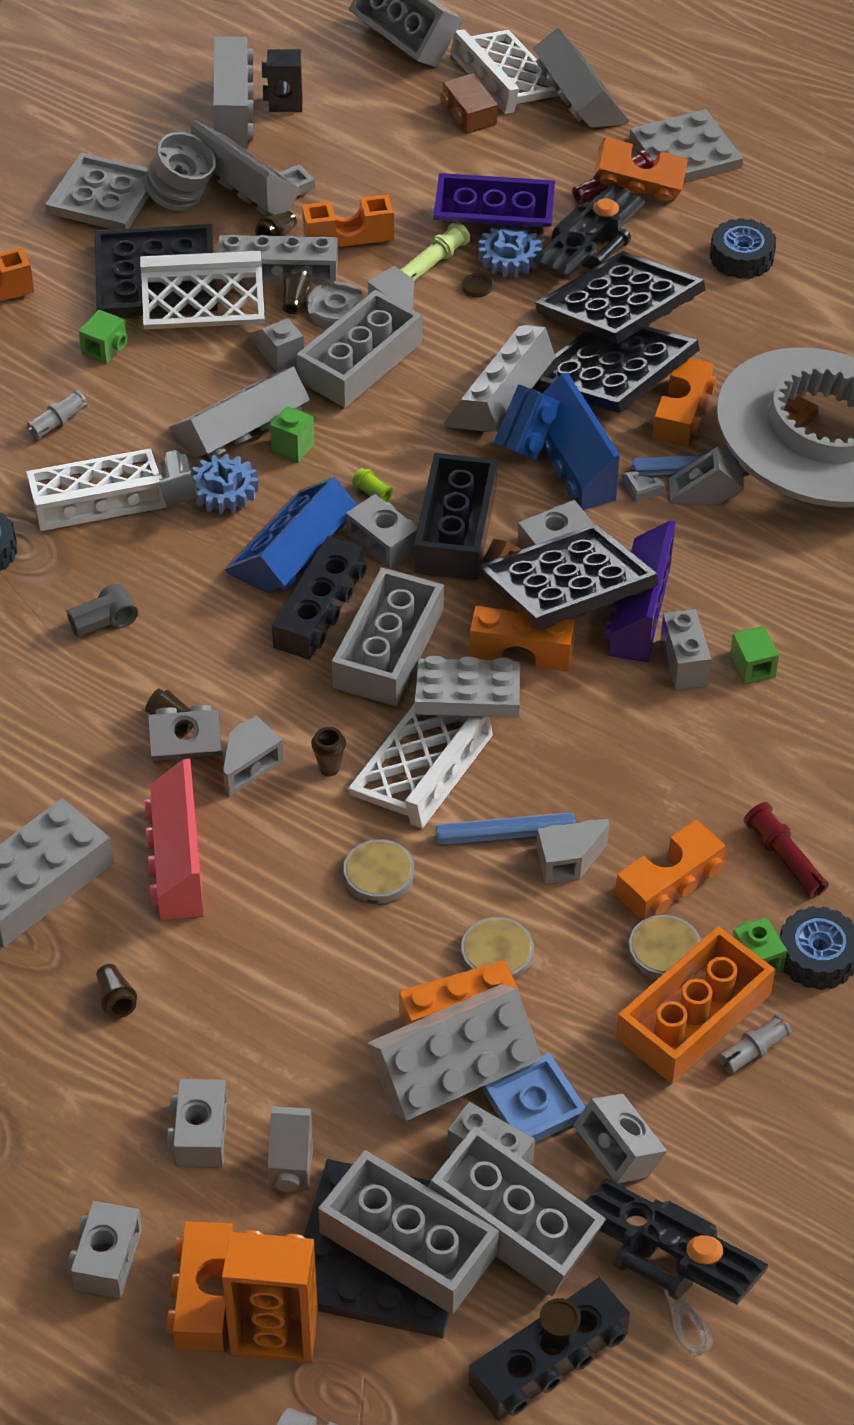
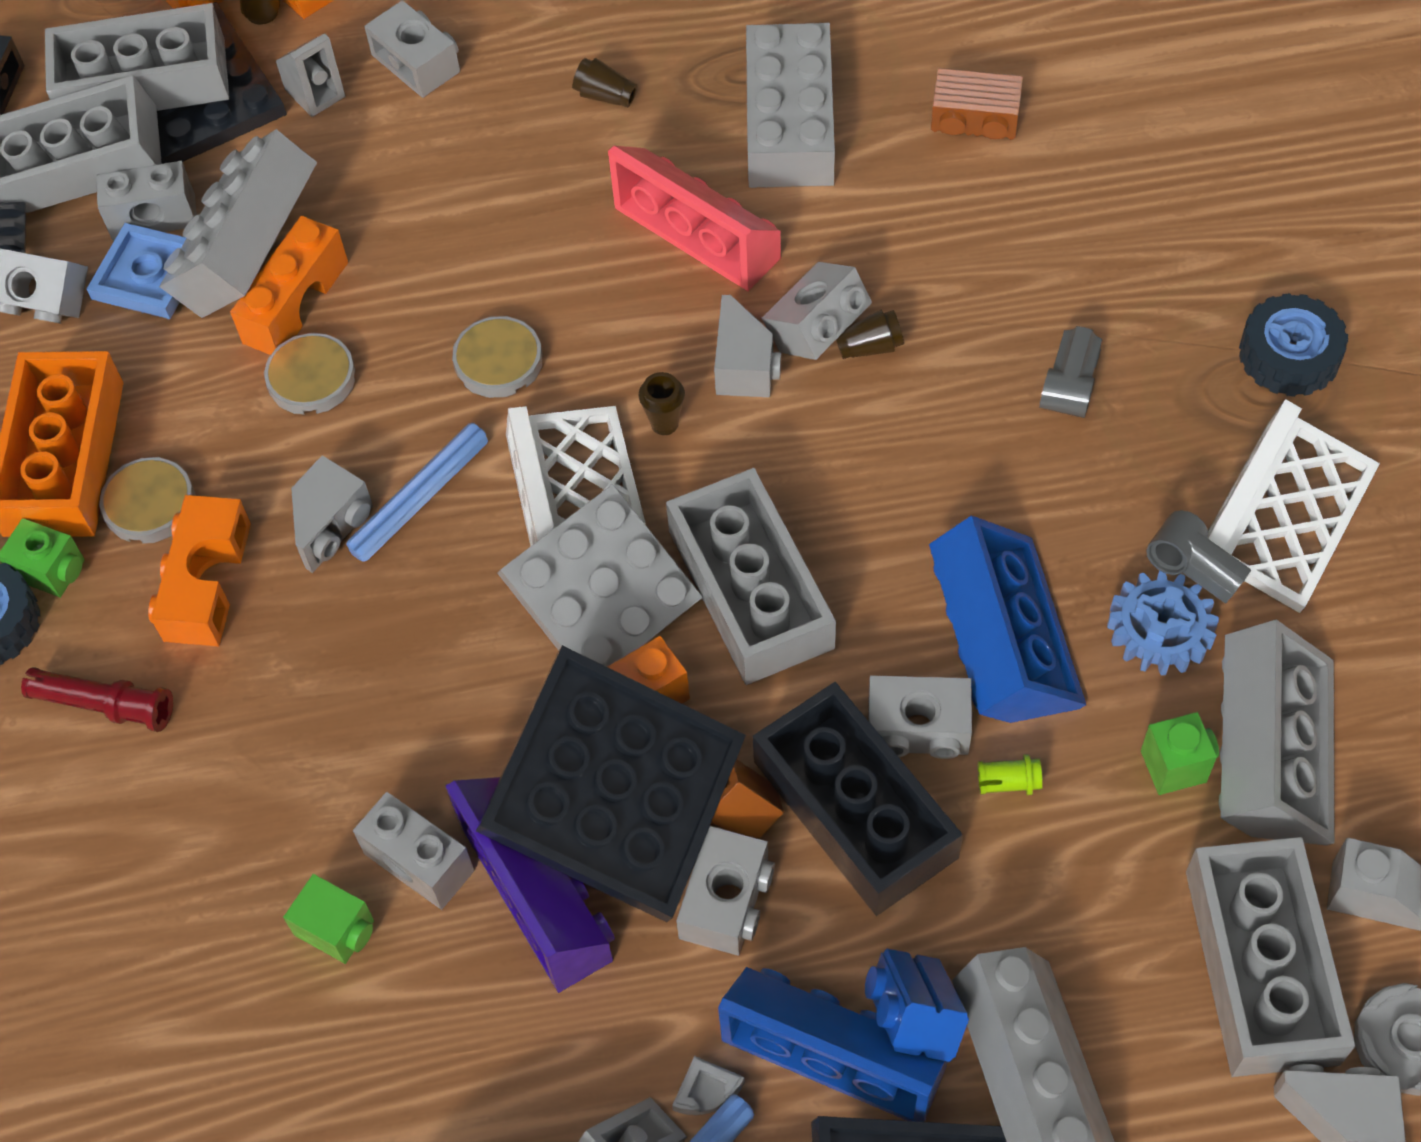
camera: 140 degrees right, 10 degrees up
(318, 598) = (865, 509): black brick -> none

